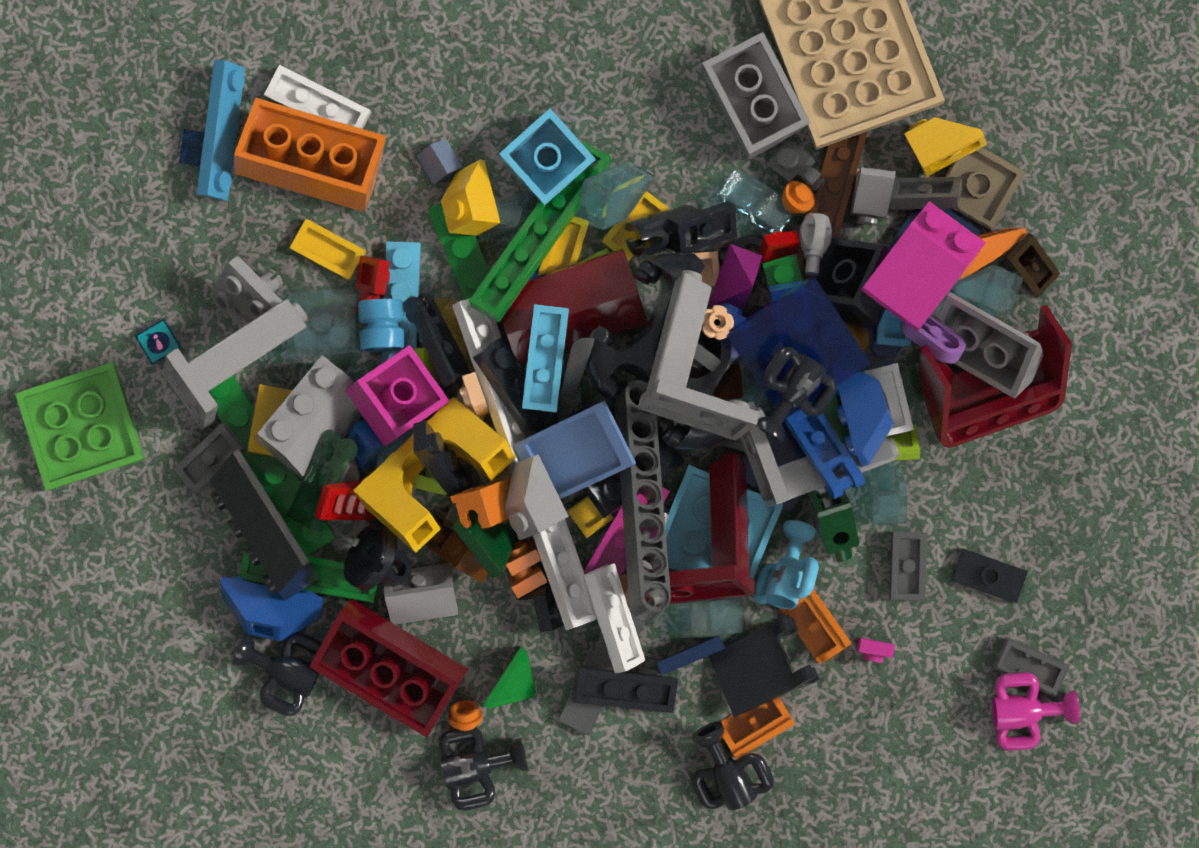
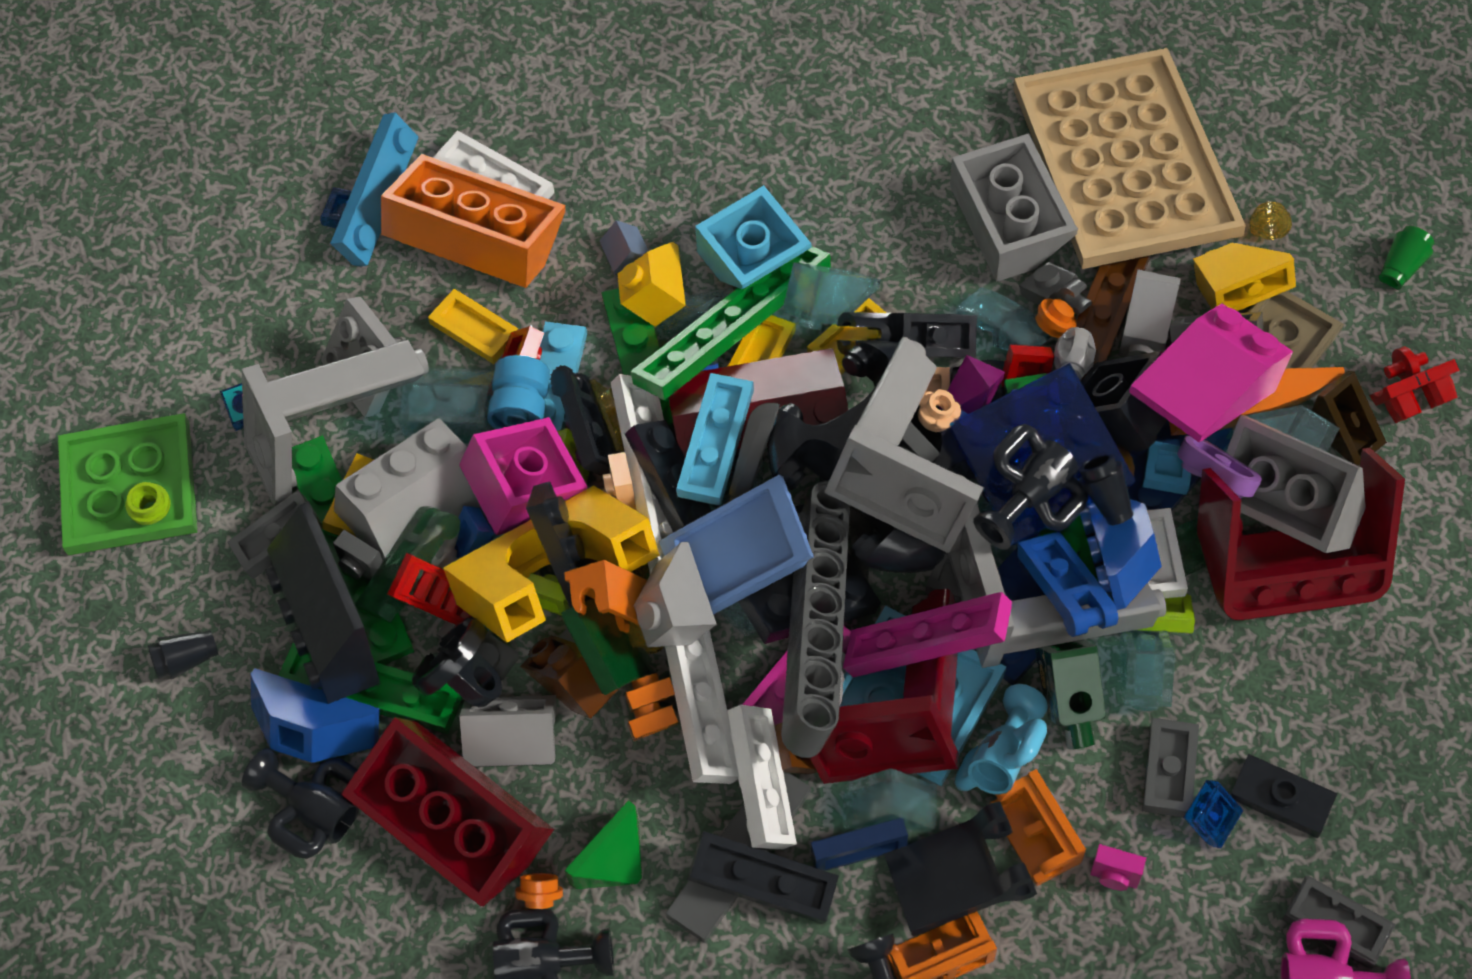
camera: 15 degrees right, 25 degrees down
(95, 445) = (143, 494): none -> lime plate
(160, 564) = (181, 652): none -> black cone
(281, 480) = (356, 556): none -> dark grey plate
(546, 608) = (672, 760): black plate -> none
(588, 517) = (747, 658): yellow tile -> none
(726, 507) = (928, 635): none -> dark pink plate
(849, 378) = (1107, 487): none -> black cone
(940, 598) = (1213, 813): none -> clear blue tile
(964, 81) = (1270, 221): none -> clear yellow plate
(1073, 104) = (1406, 255): none -> green cone
(1079, 219) = (1434, 382): none -> red hips

